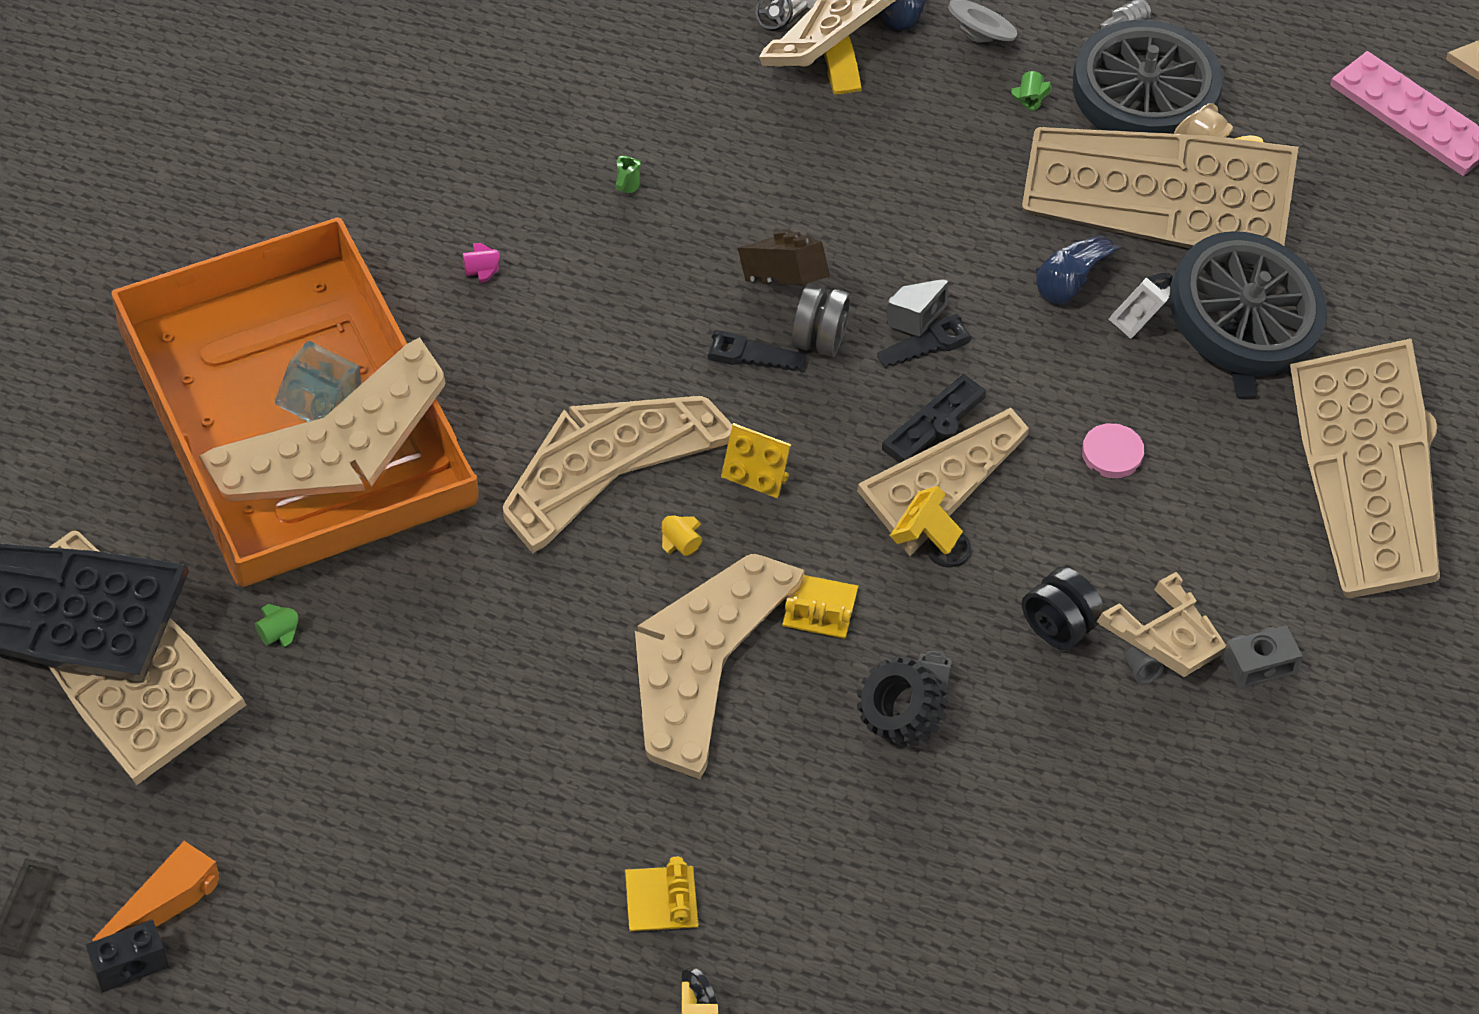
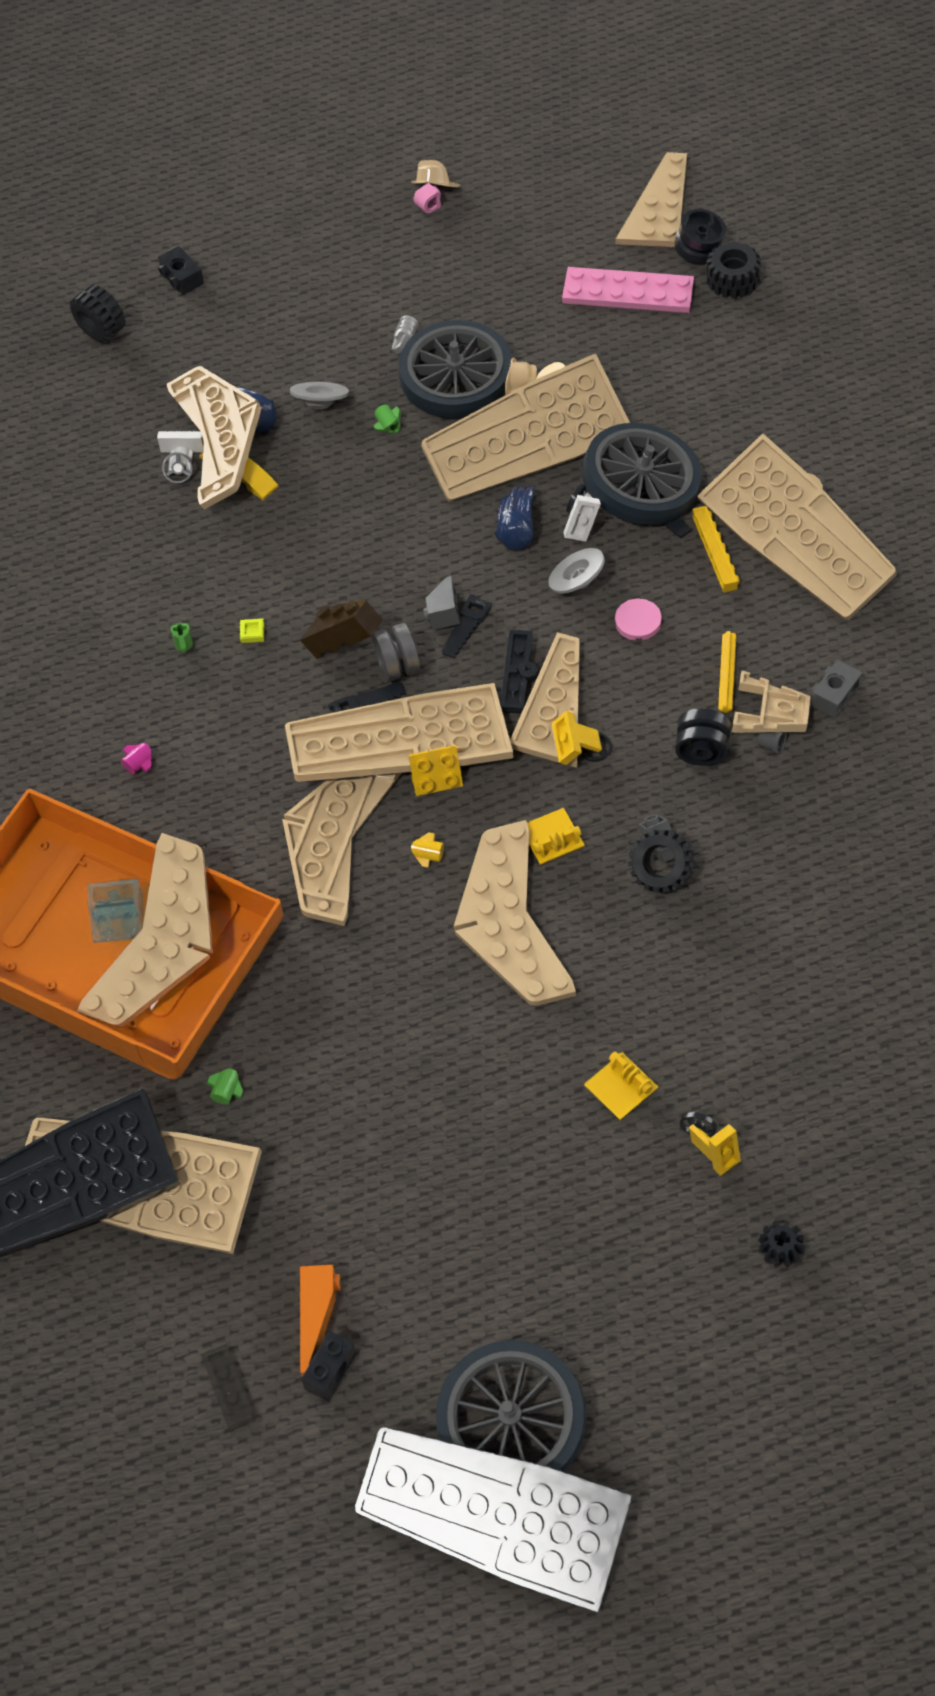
camera: 30 degrees left, 5 degrees up
(705, 212) = (252, 630): none -> neon yellow tile
(715, 386) = (383, 734): none -> tan wing
(1087, 360) = (576, 570): none -> light grey hat
(1159, 564) = (727, 672): none -> yellow axle
(1264, 432) = (715, 549): none -> yellow piece

